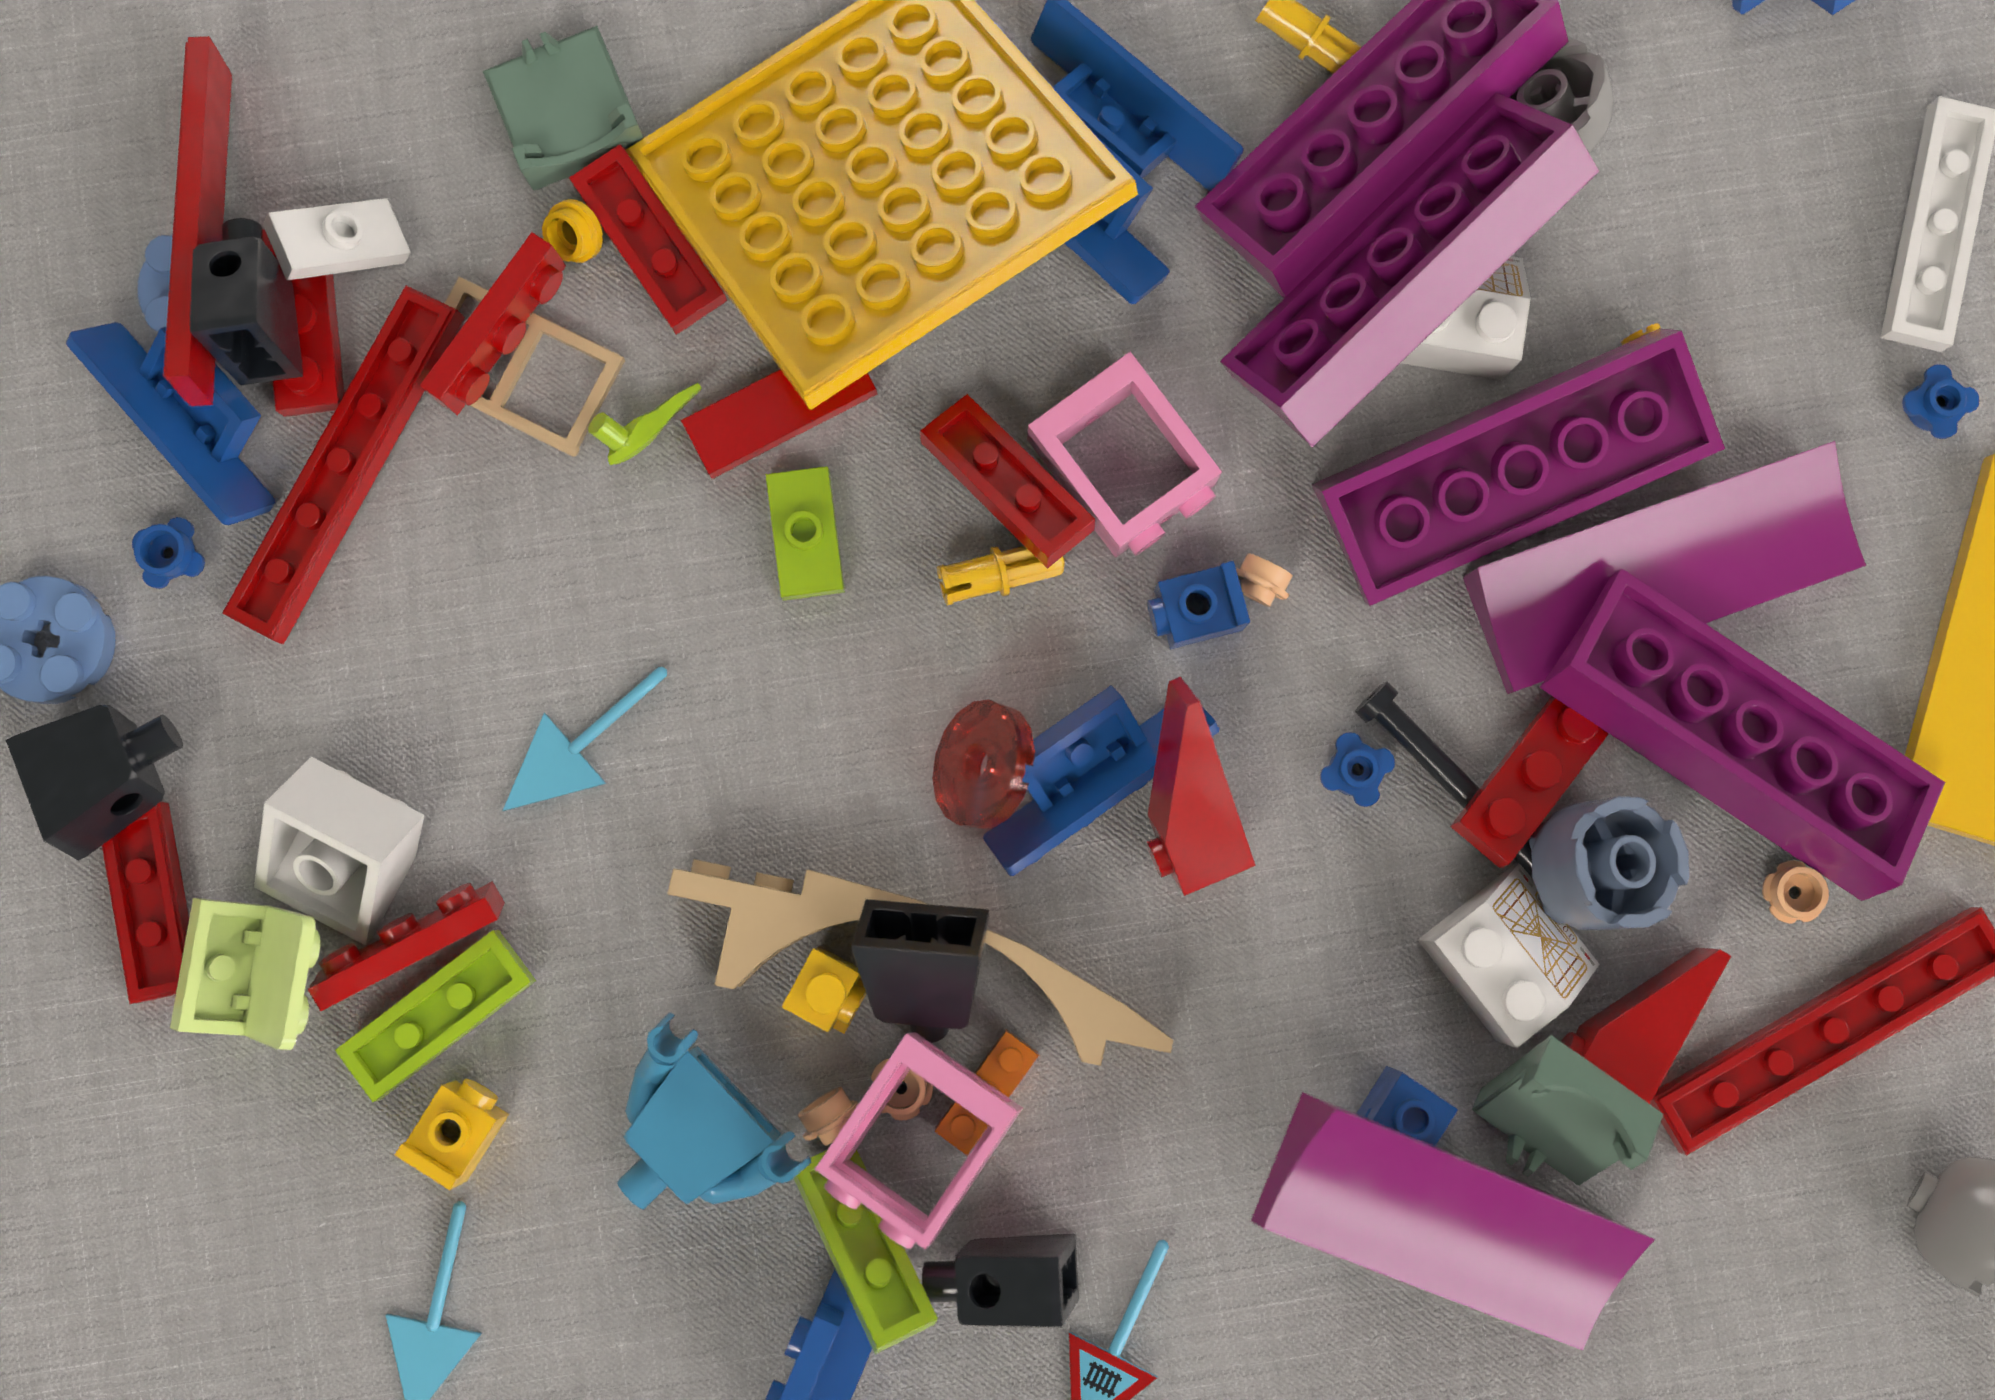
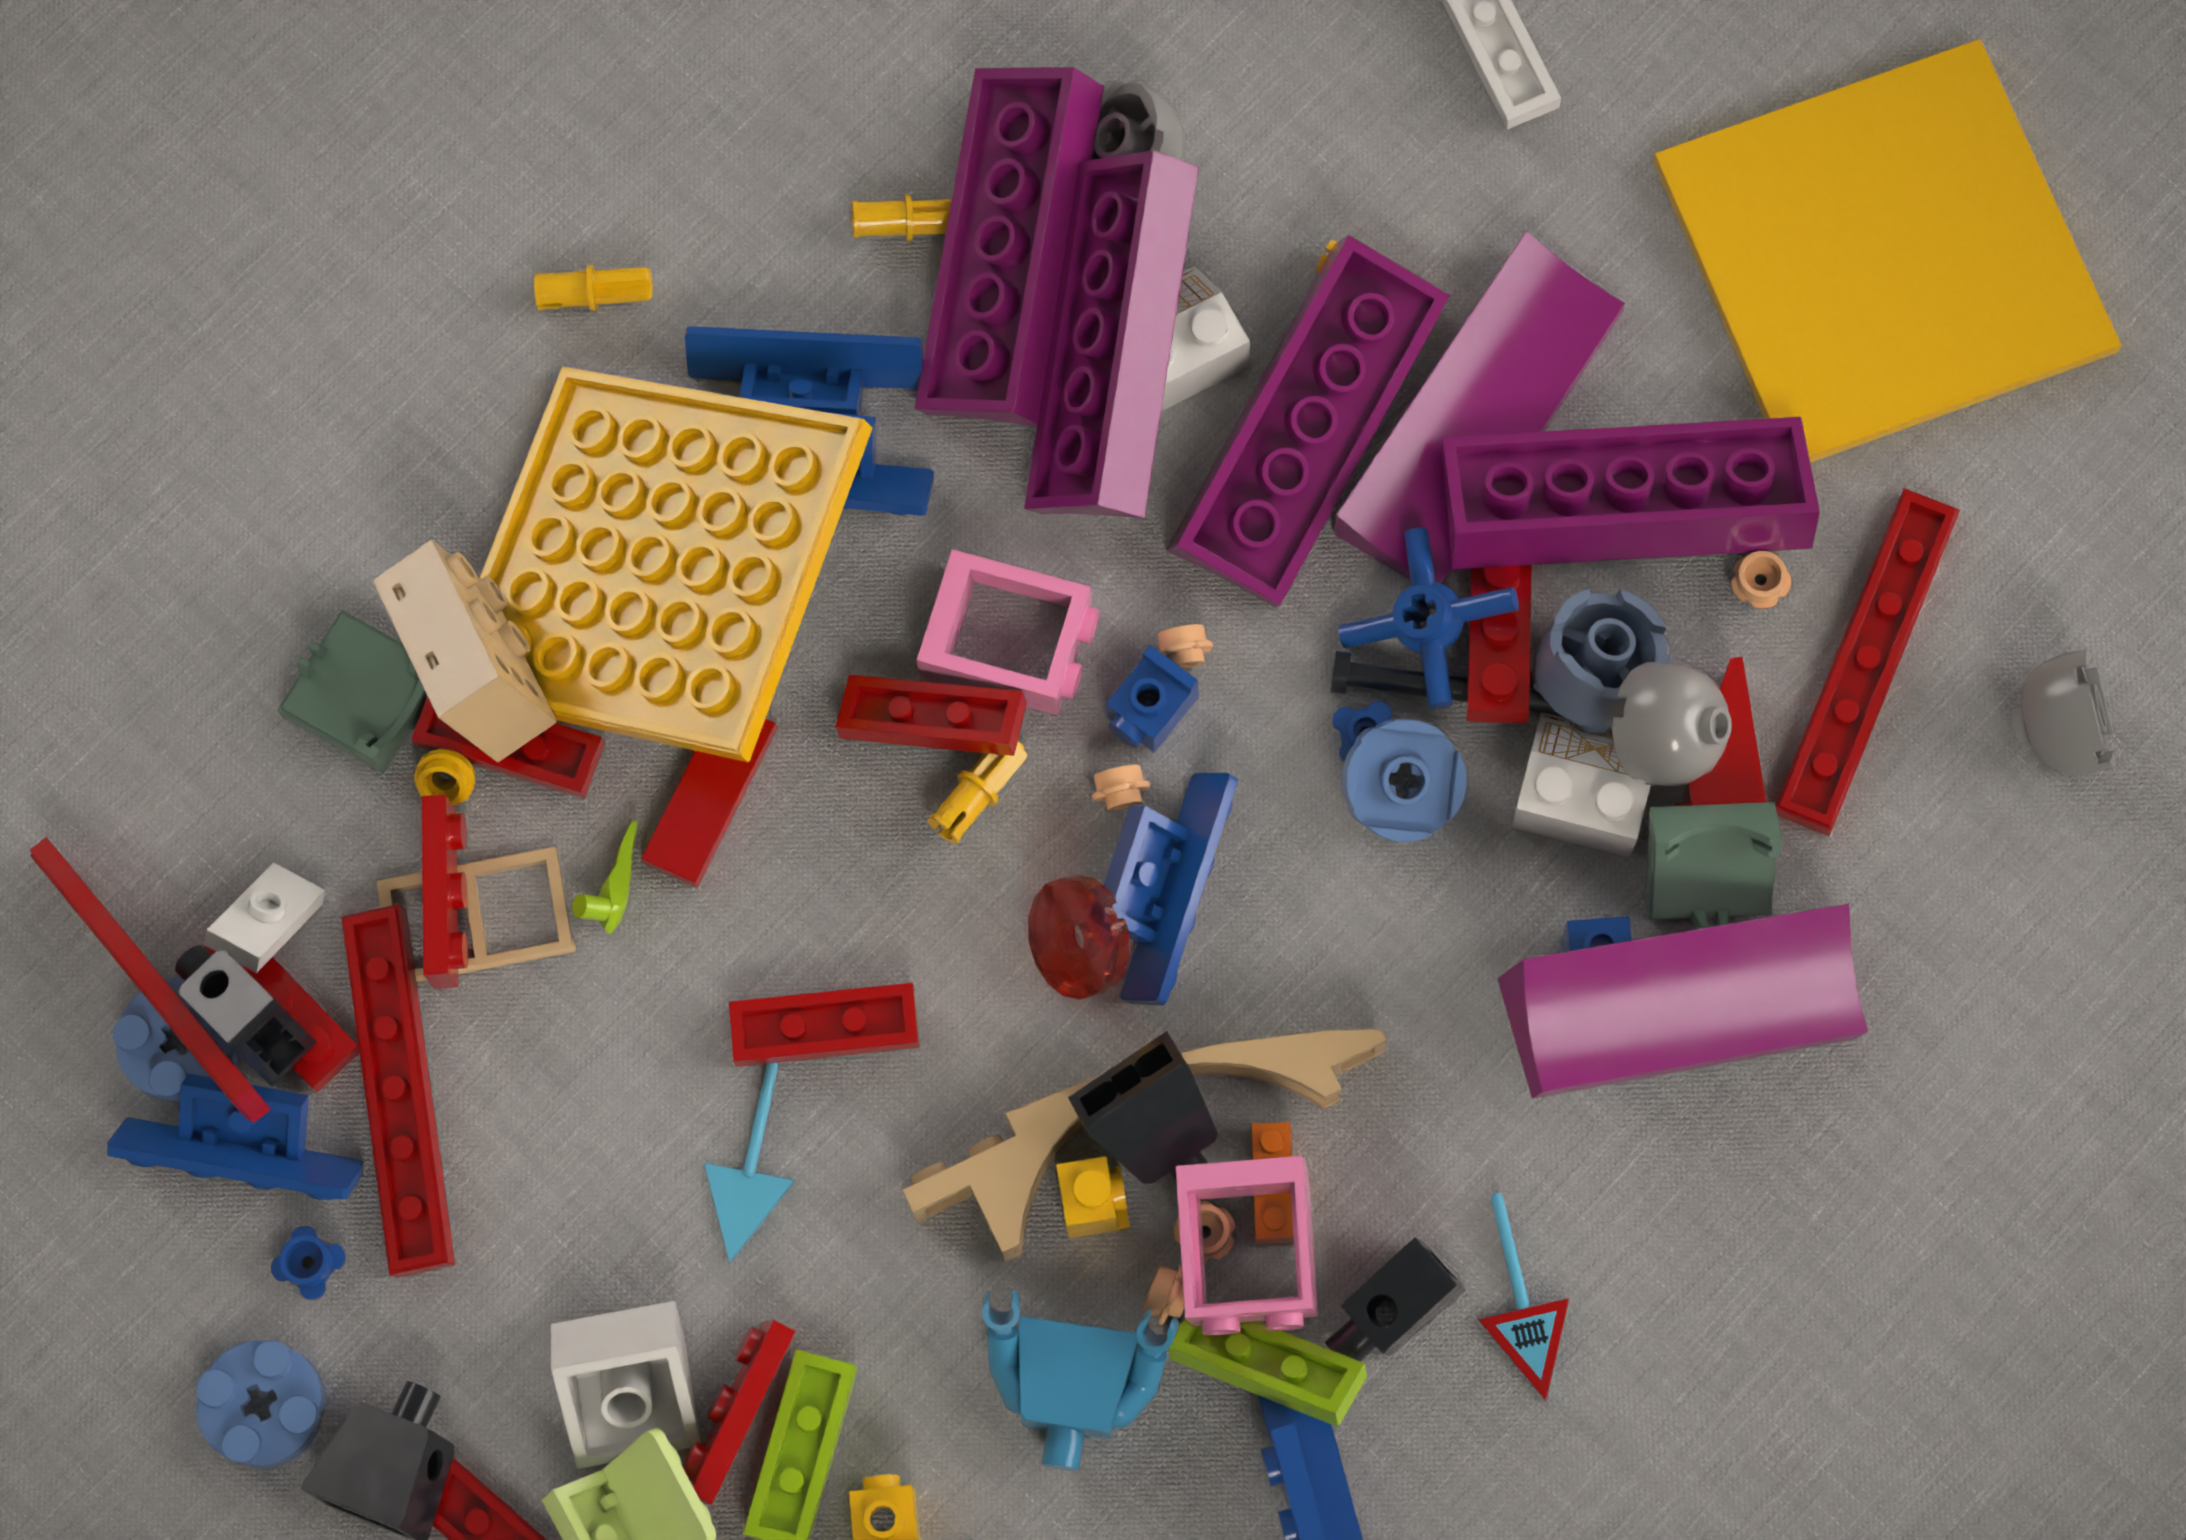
camera: 30 degrees left, 10 degrees down
(651, 131) = (465, 649): none -> tan piece
(723, 674) = (824, 1024): none -> red plate
(805, 533) = (804, 873): lime plate -> none
(1117, 660) = (1120, 787): none -> light nougat plate
(1191, 801) = (1256, 842): red slope -> none
(1358, 801) = (1429, 756): none -> medium blue plate
(1492, 733) = (1442, 628): none -> blue bar
(1631, 982) = (1670, 724): none -> light grey cylinder
(1923, 408) = (1586, 160): blue plate -> none

